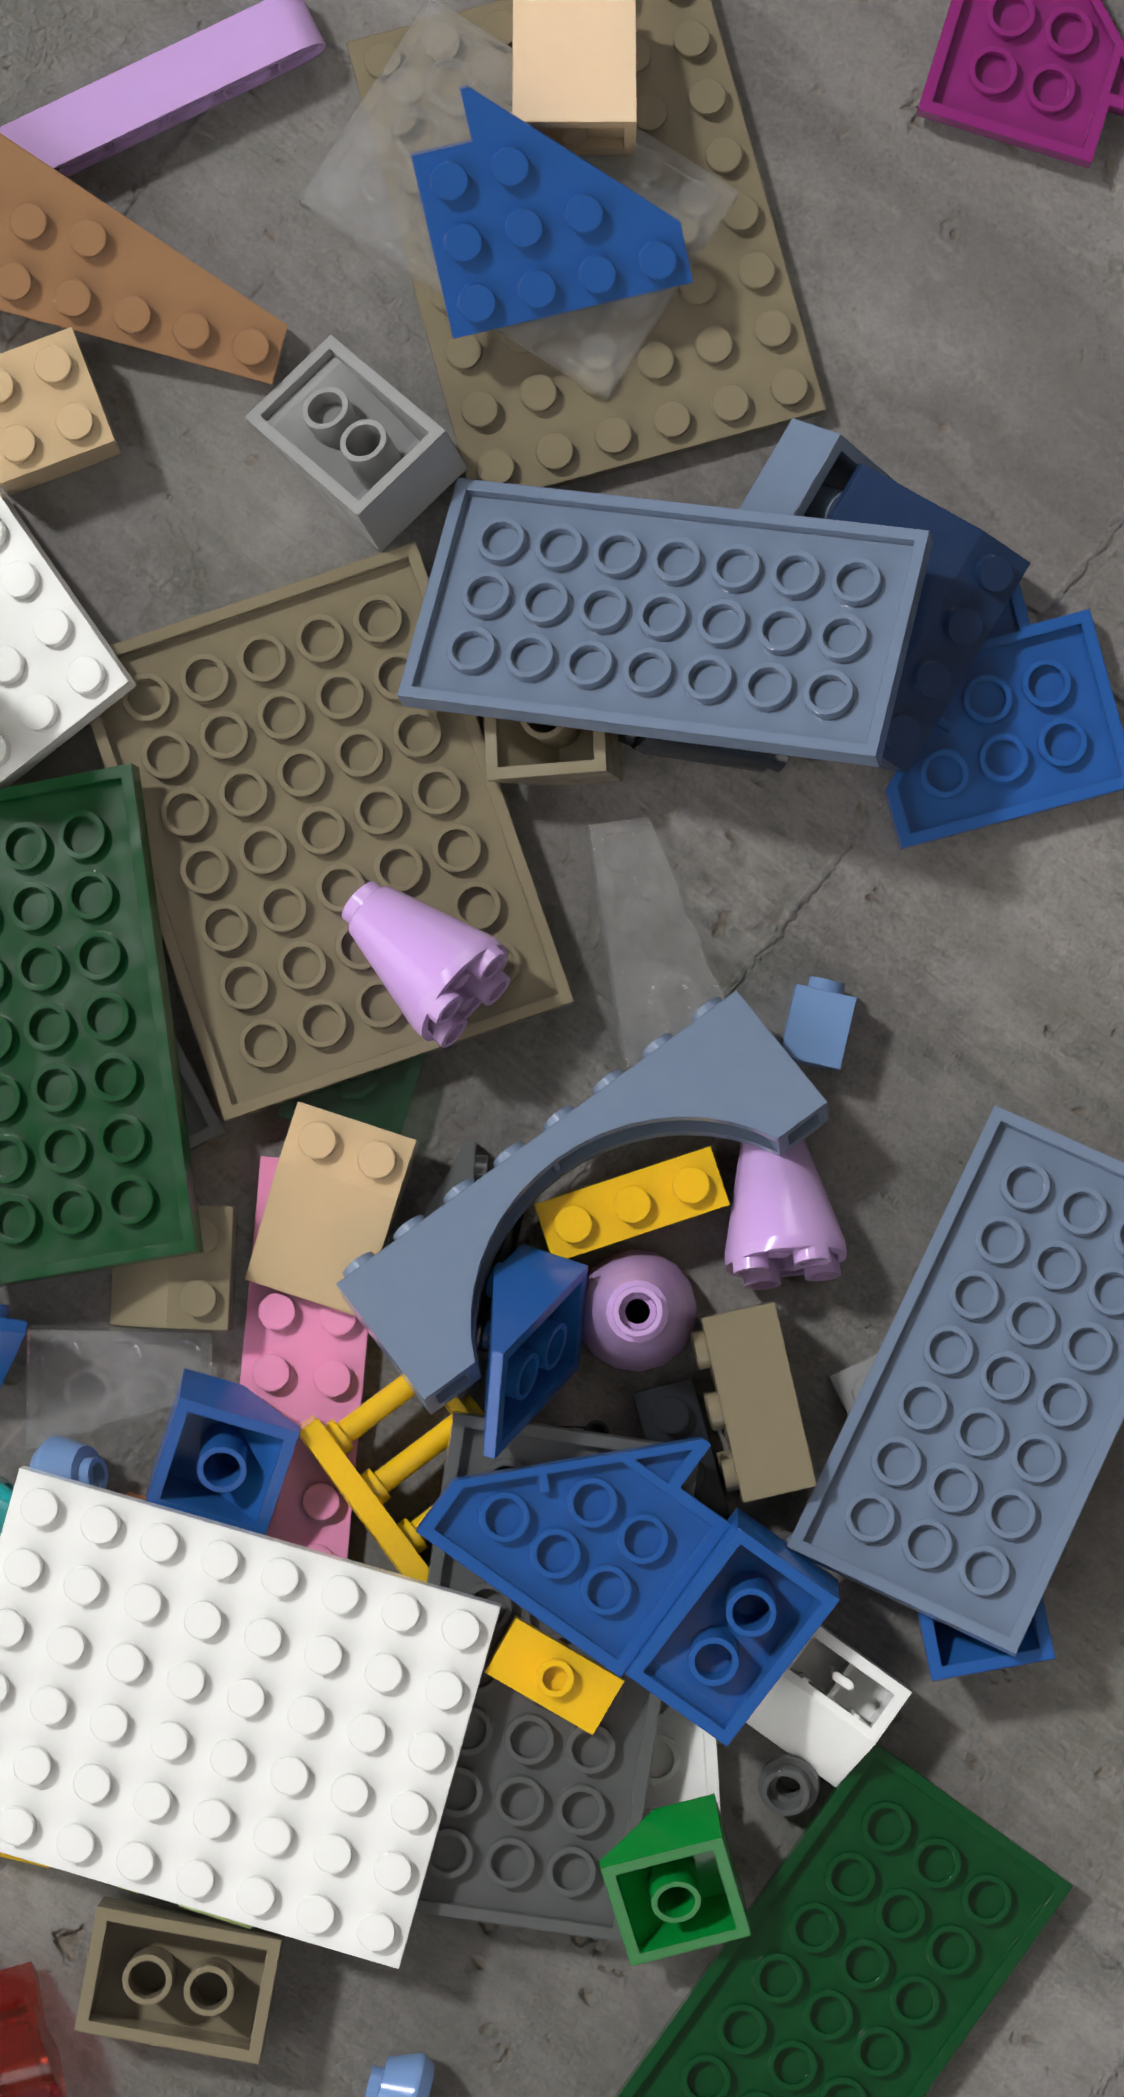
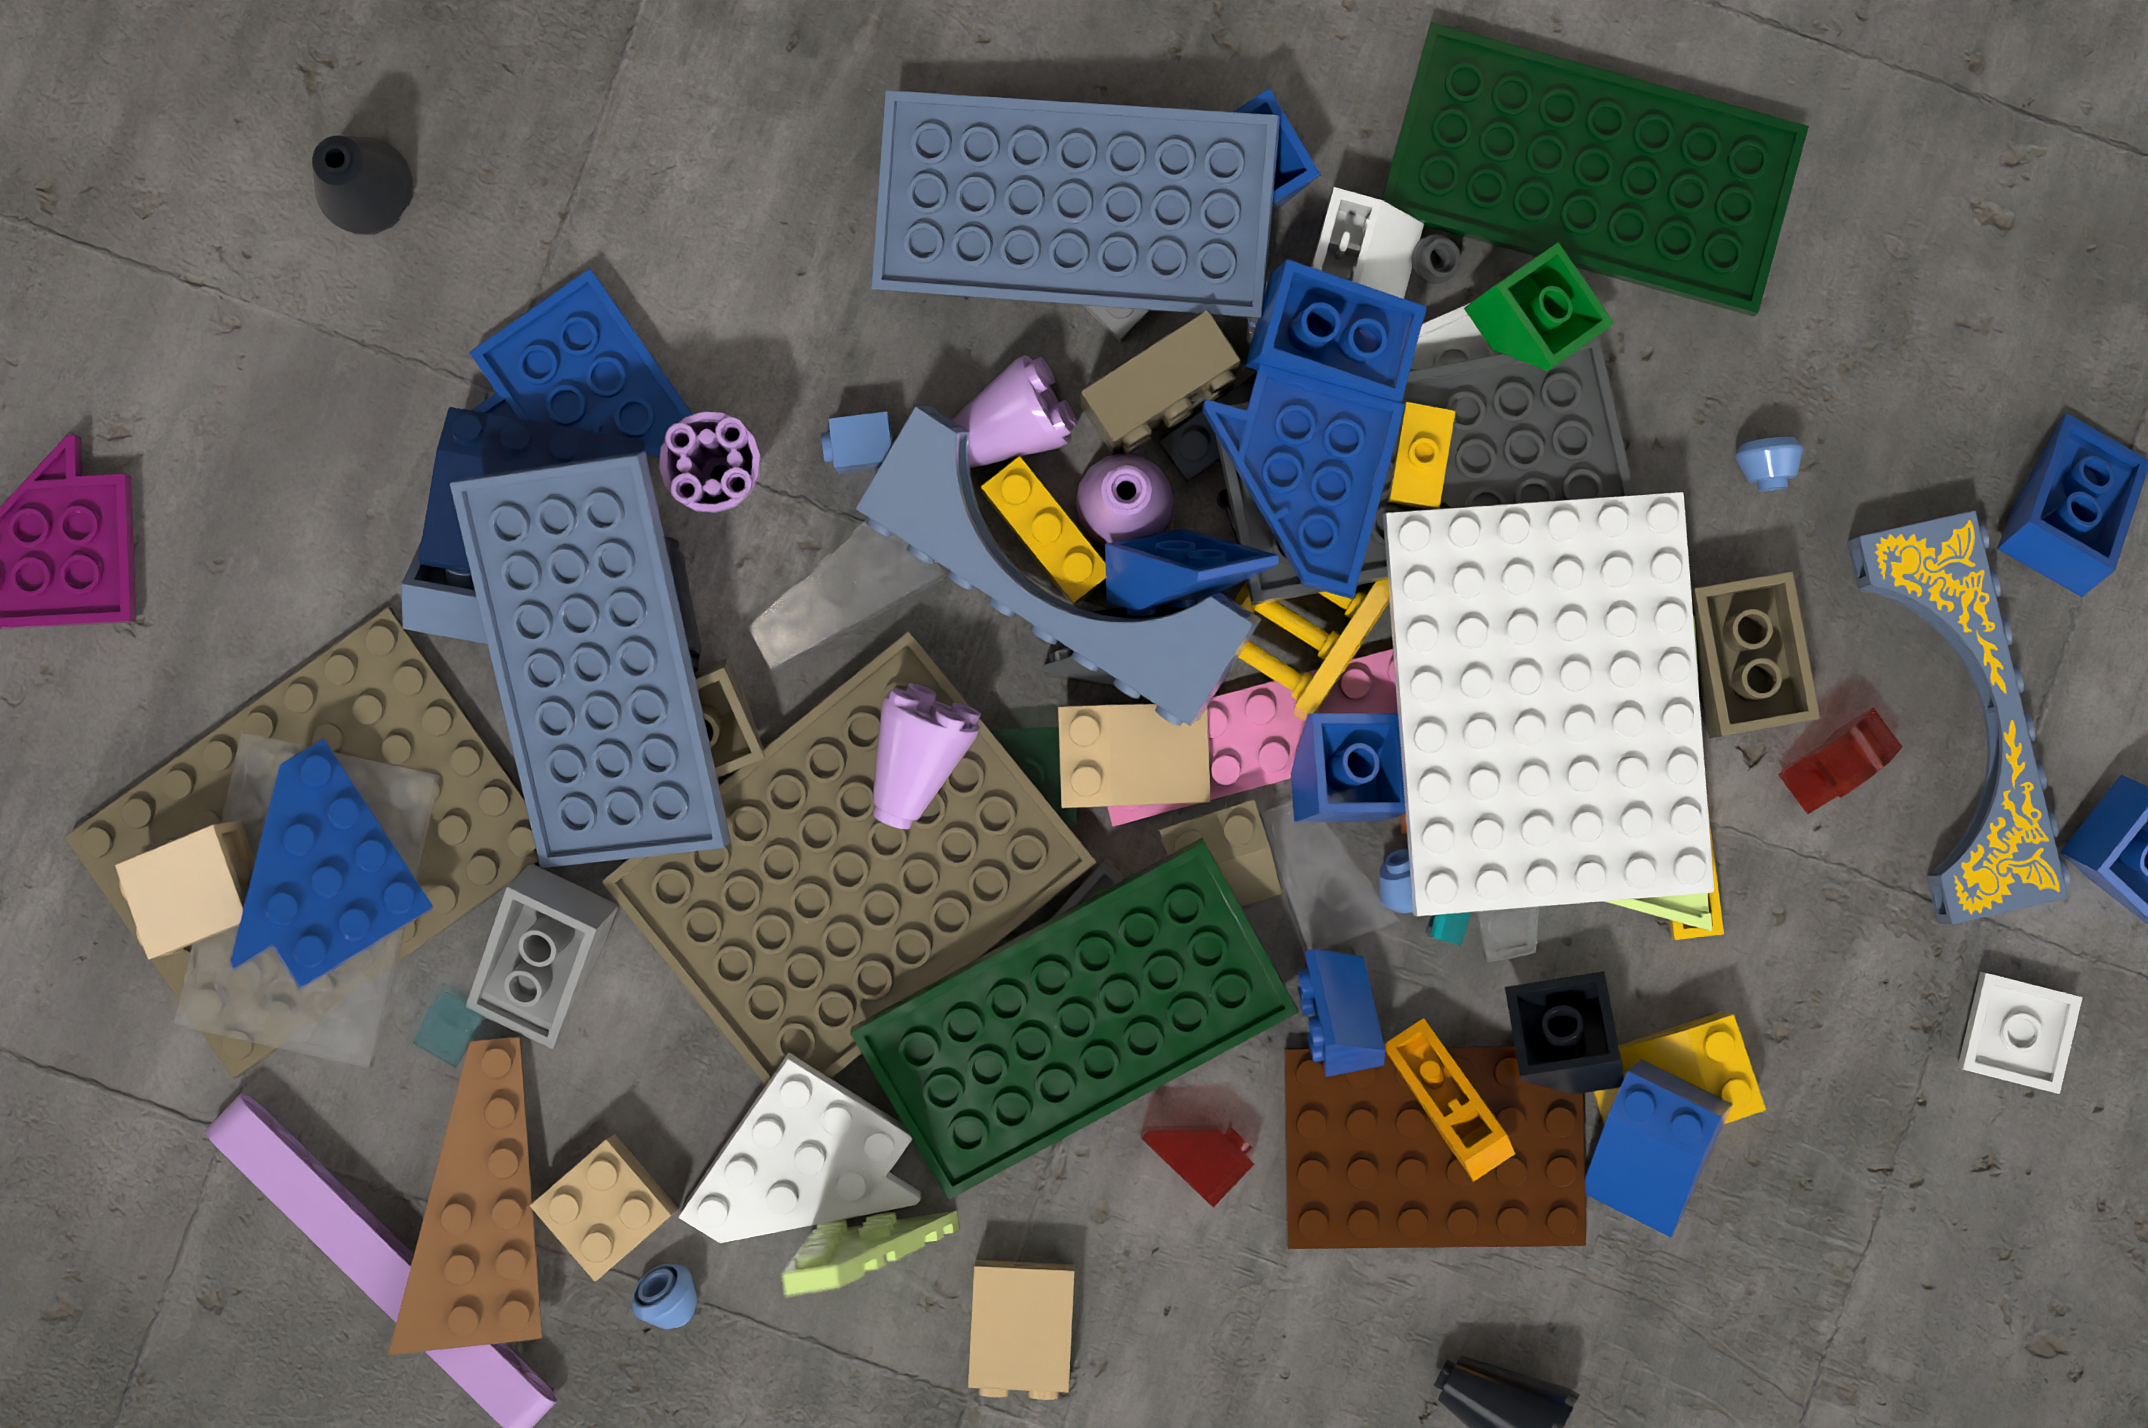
camera: 110 degrees left, 0 degrees up
(312, 306) = (448, 1029): none -> clear light blue slope
(857, 814) = (700, 446): none -> lavender cone

